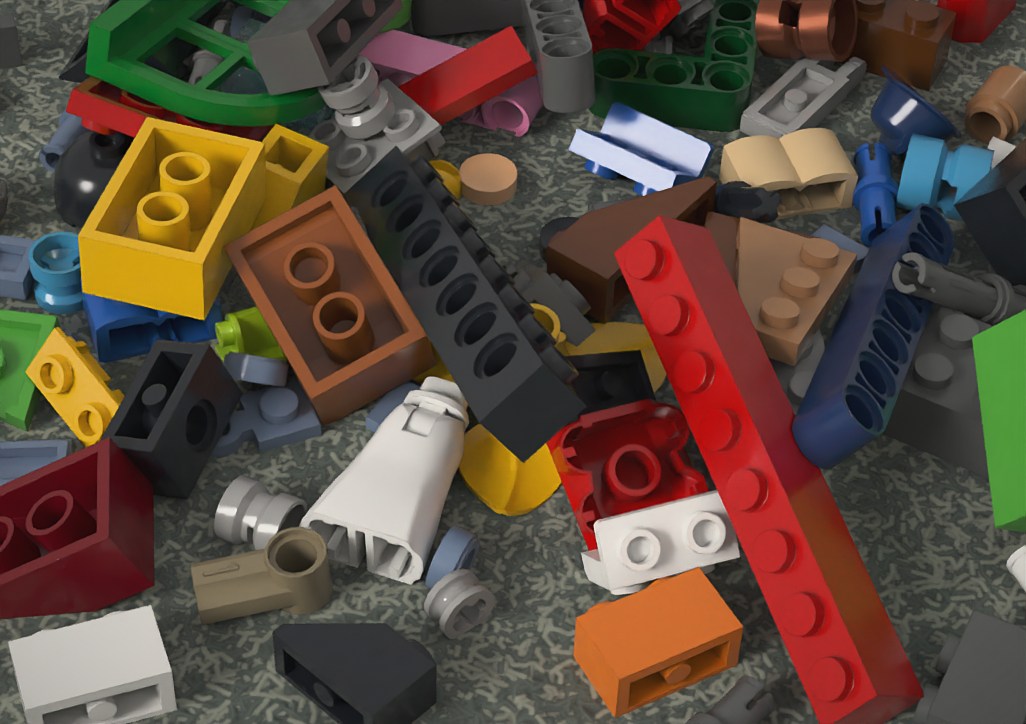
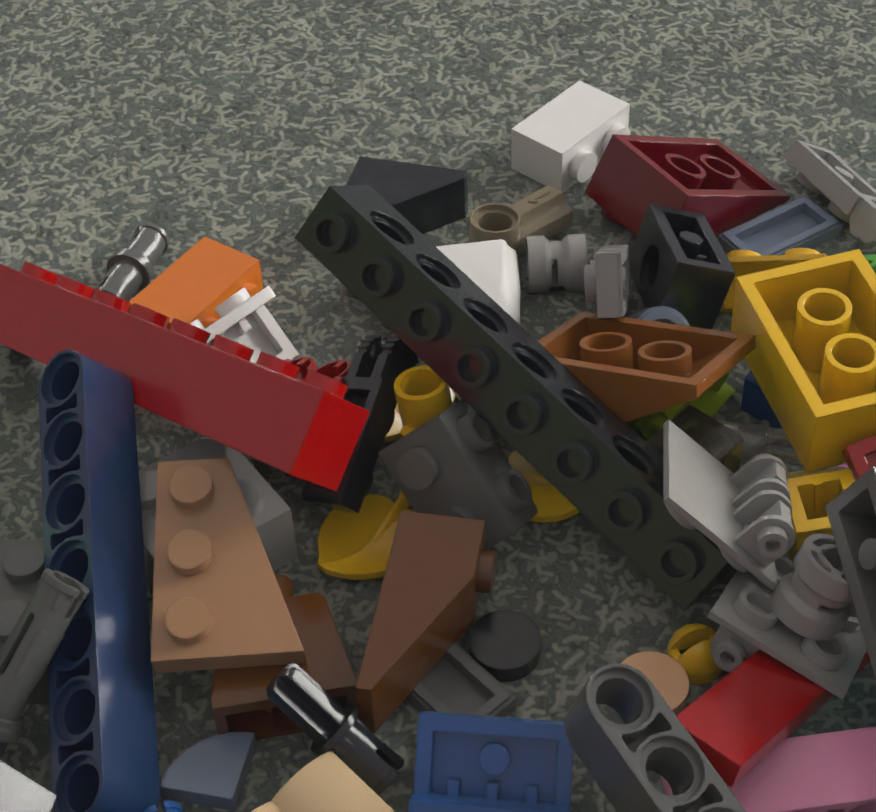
camera: 155 degrees right, 0 degrees up
(253, 412) = (609, 280): none -> light grey hinge
(365, 153) = (738, 511): none -> light grey hinge

